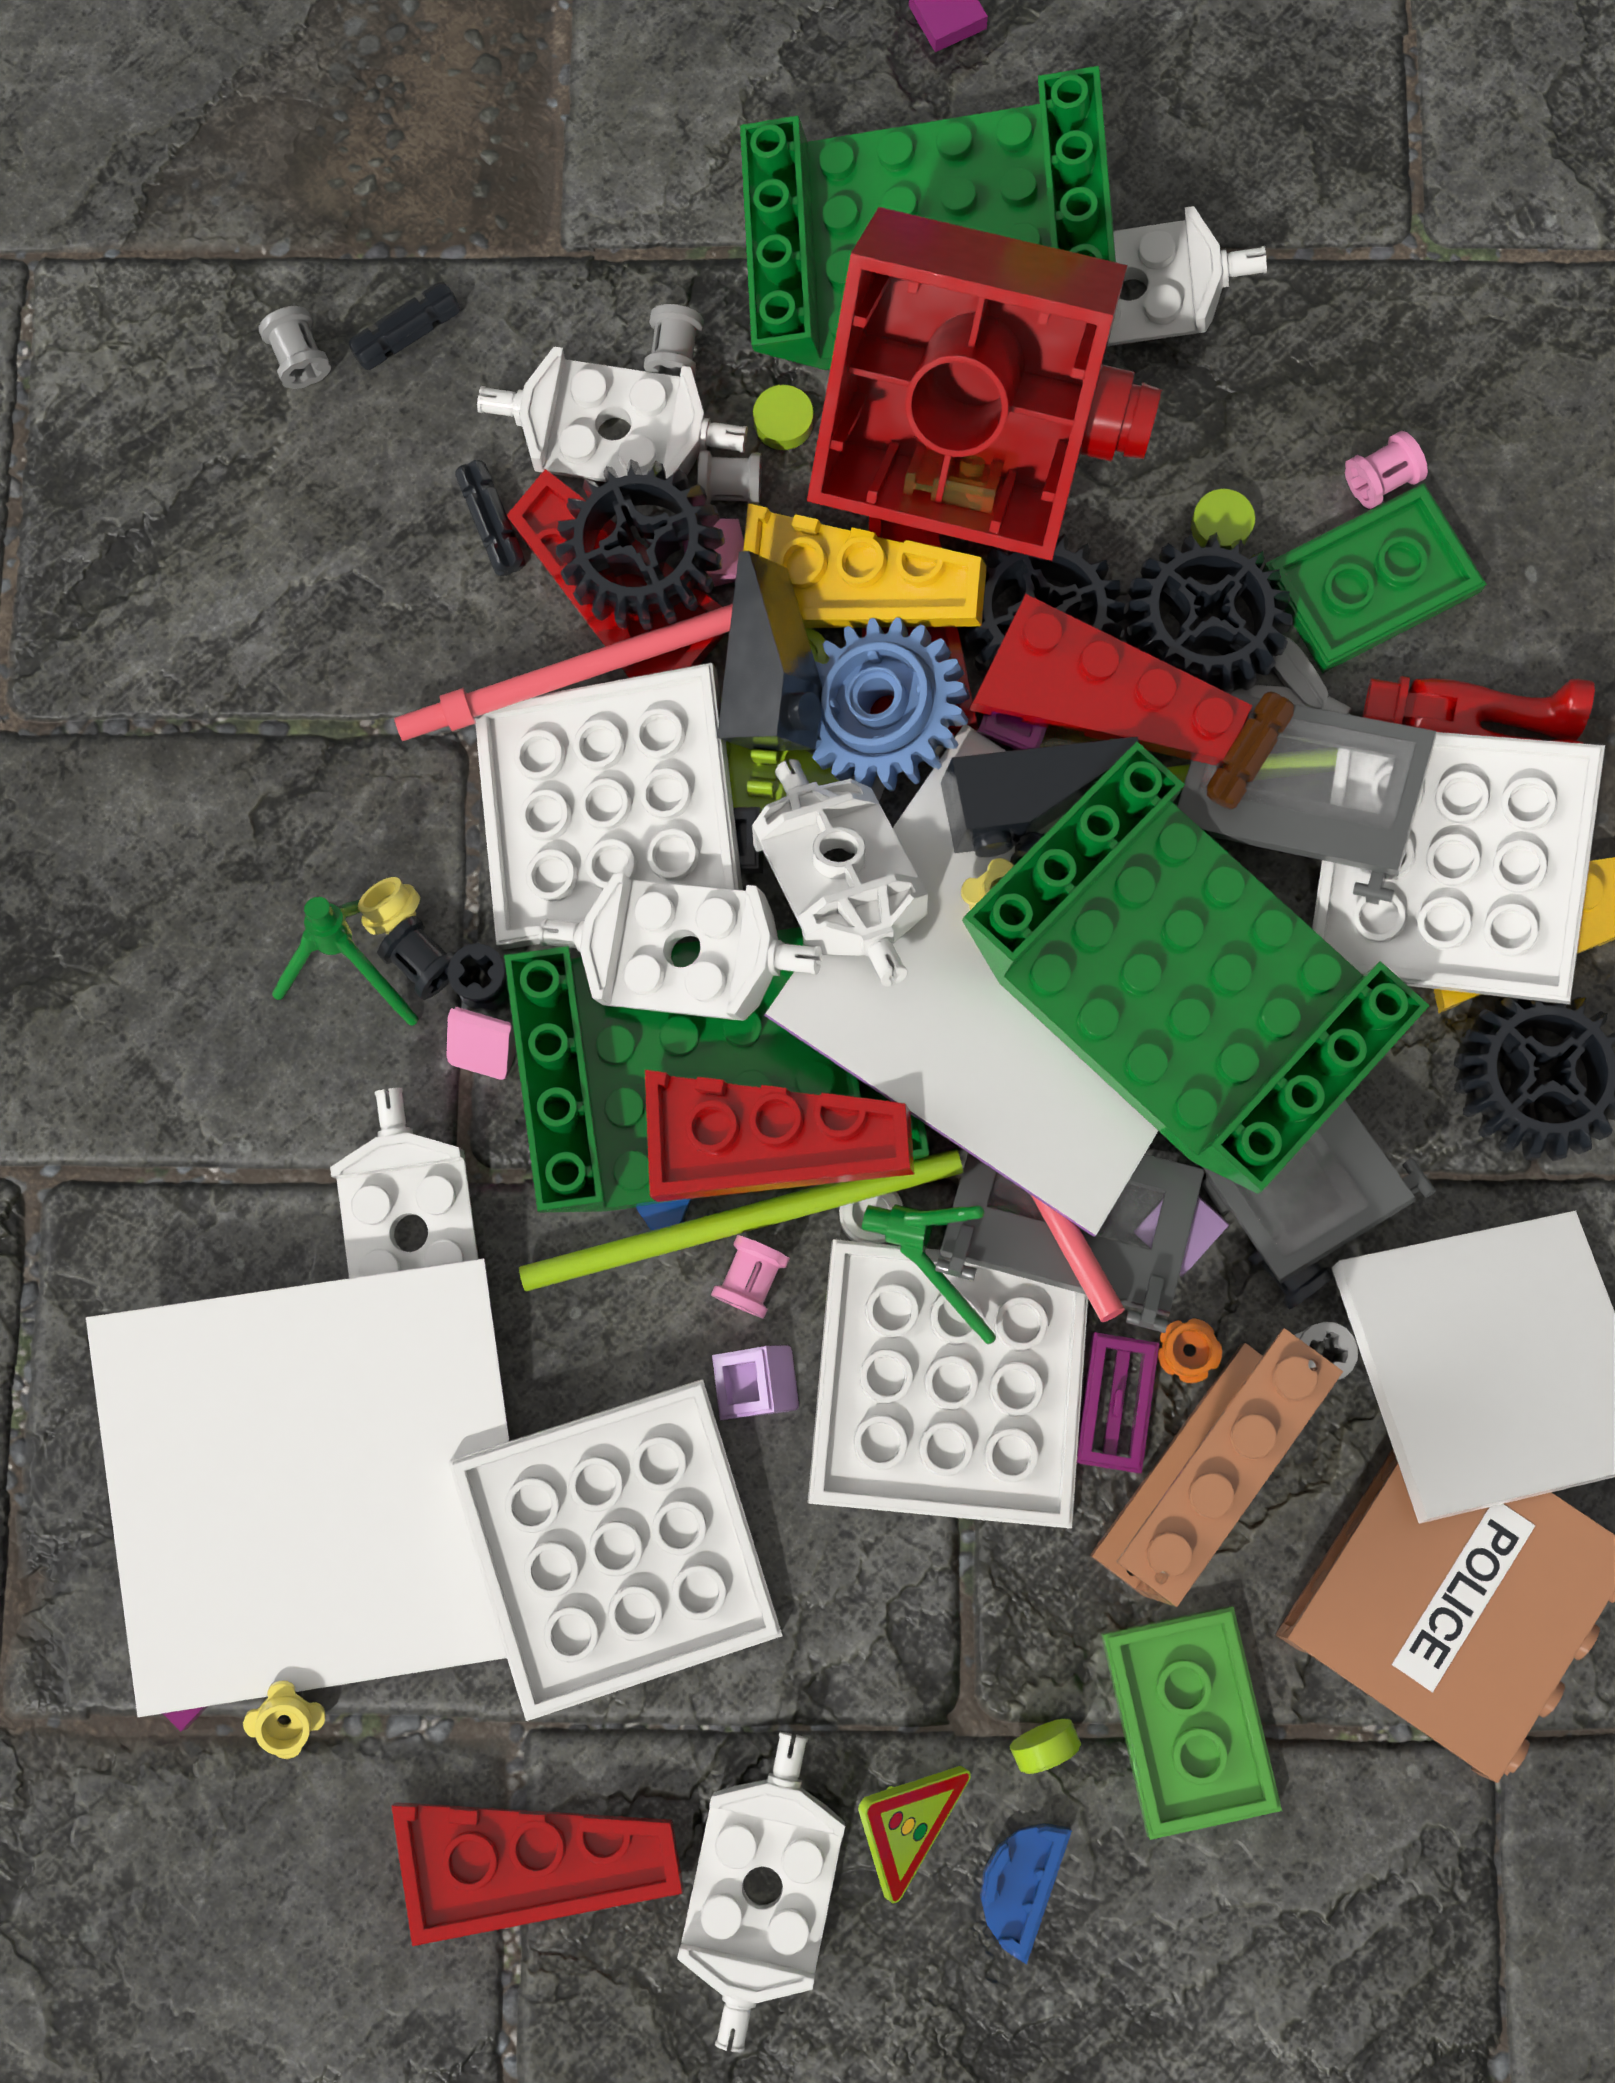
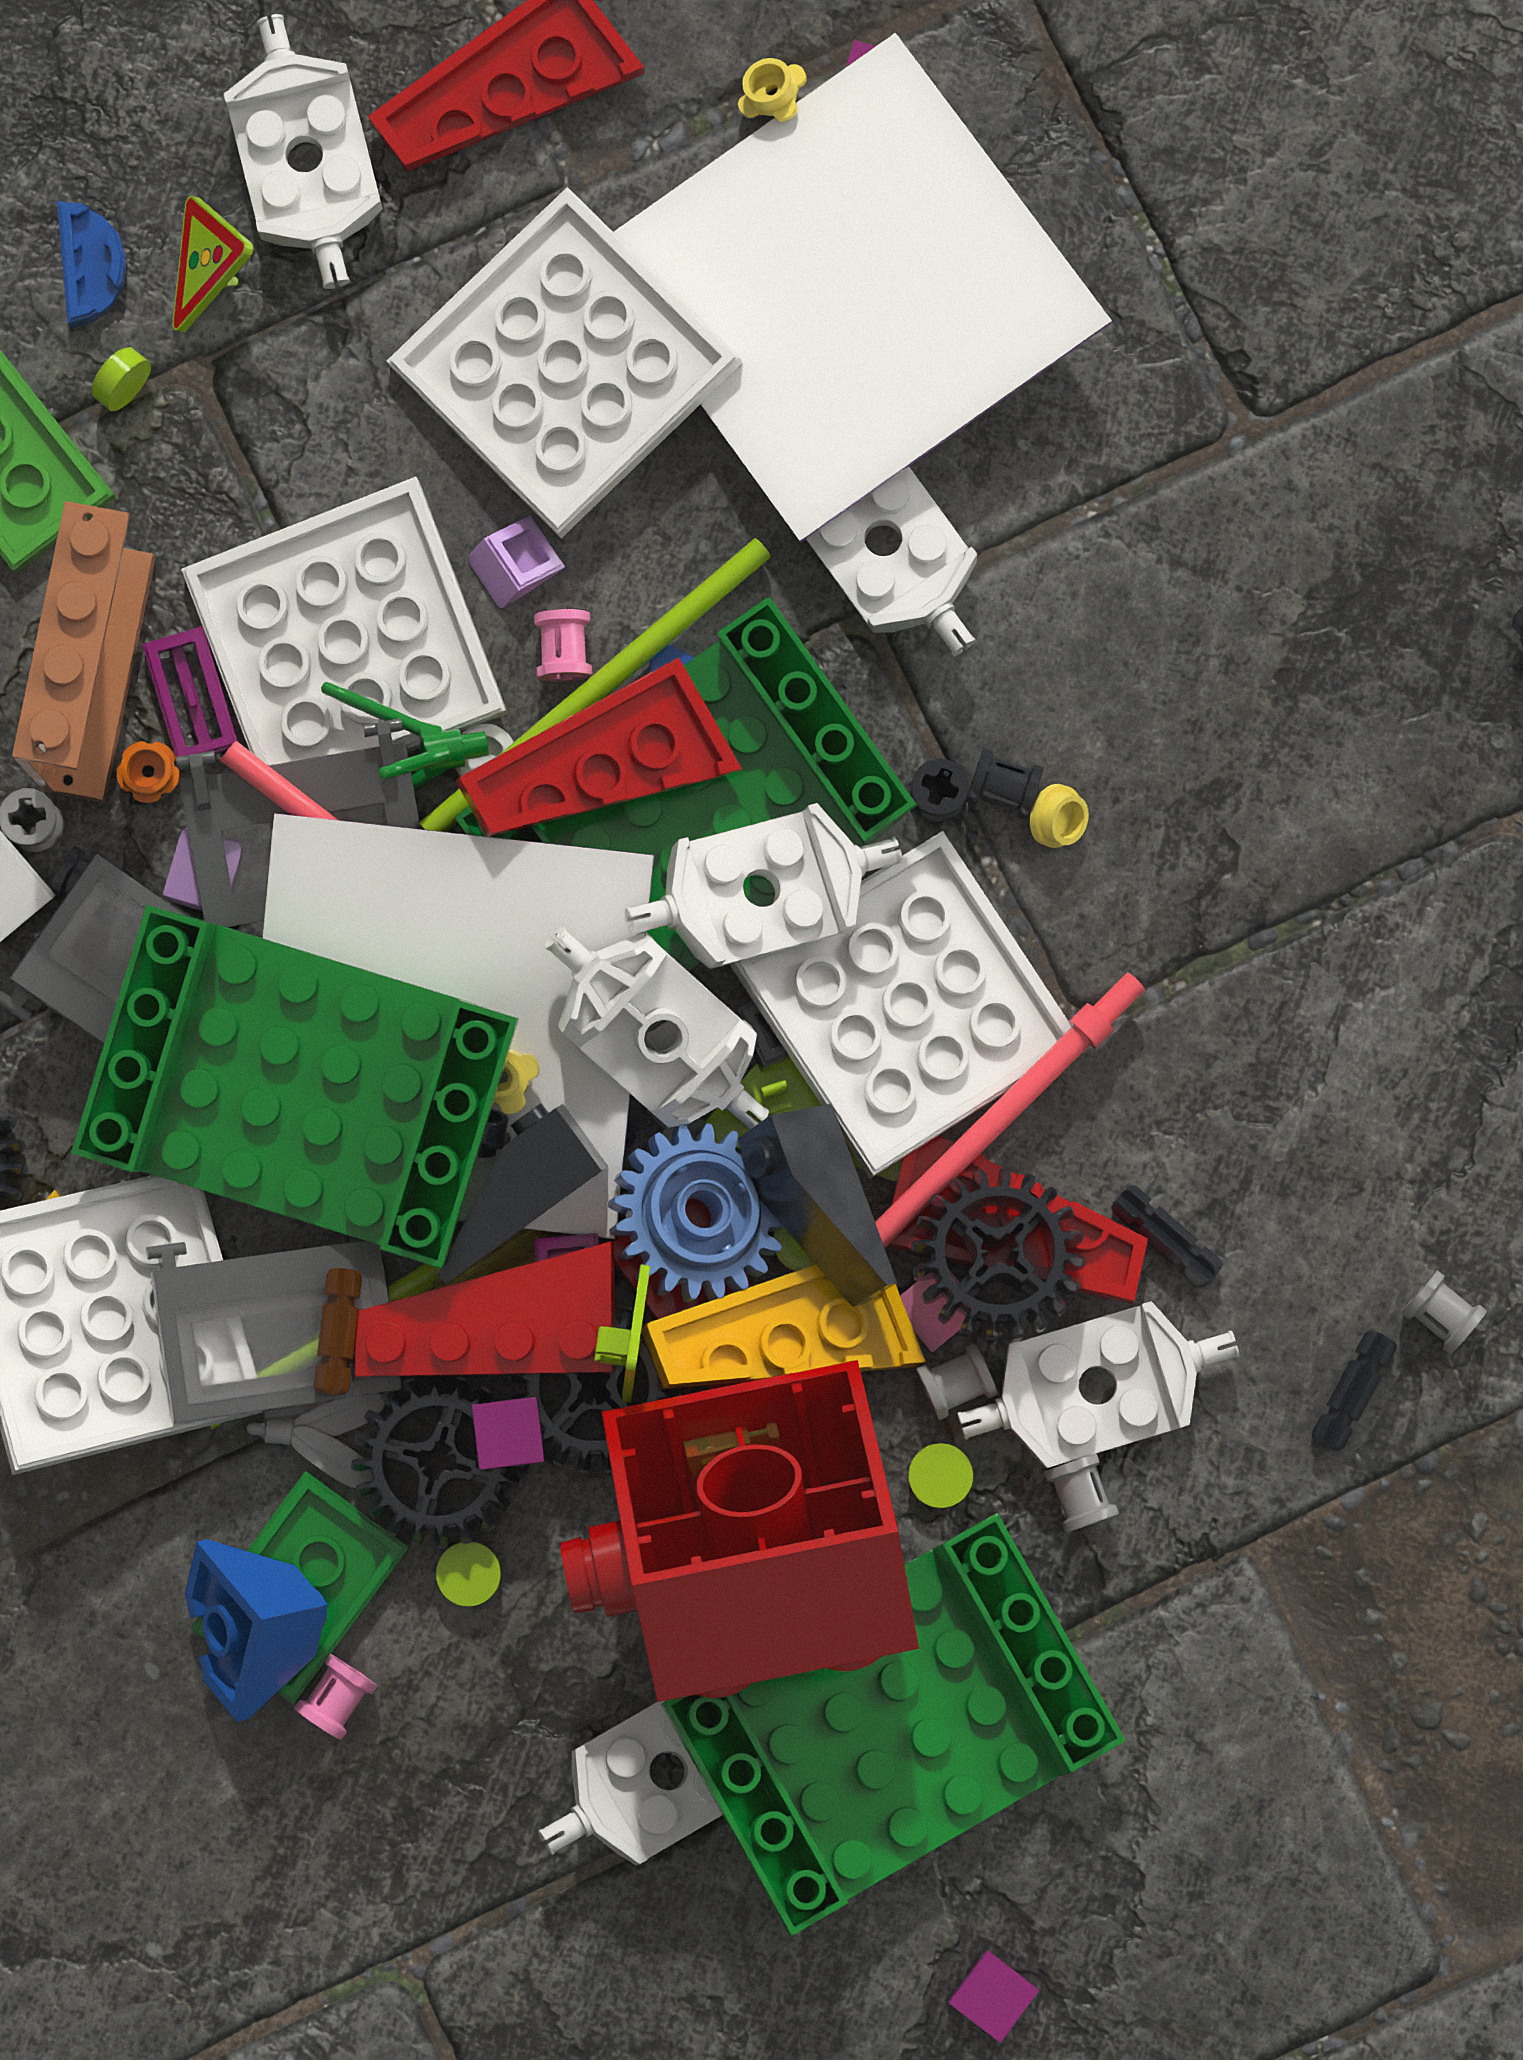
camera: 150 degrees right, 5 degrees up
(331, 935) = (1082, 752): green plant -> none
(480, 1043) = (909, 736): bright pink slope -> none
(1002, 595) = (621, 1346): none -> lime piece
(1140, 593) = (508, 1433): none -> magenta tile
(1433, 547) = (256, 1620): none -> blue slope
(1461, 706) = (170, 1476): red piece -> none

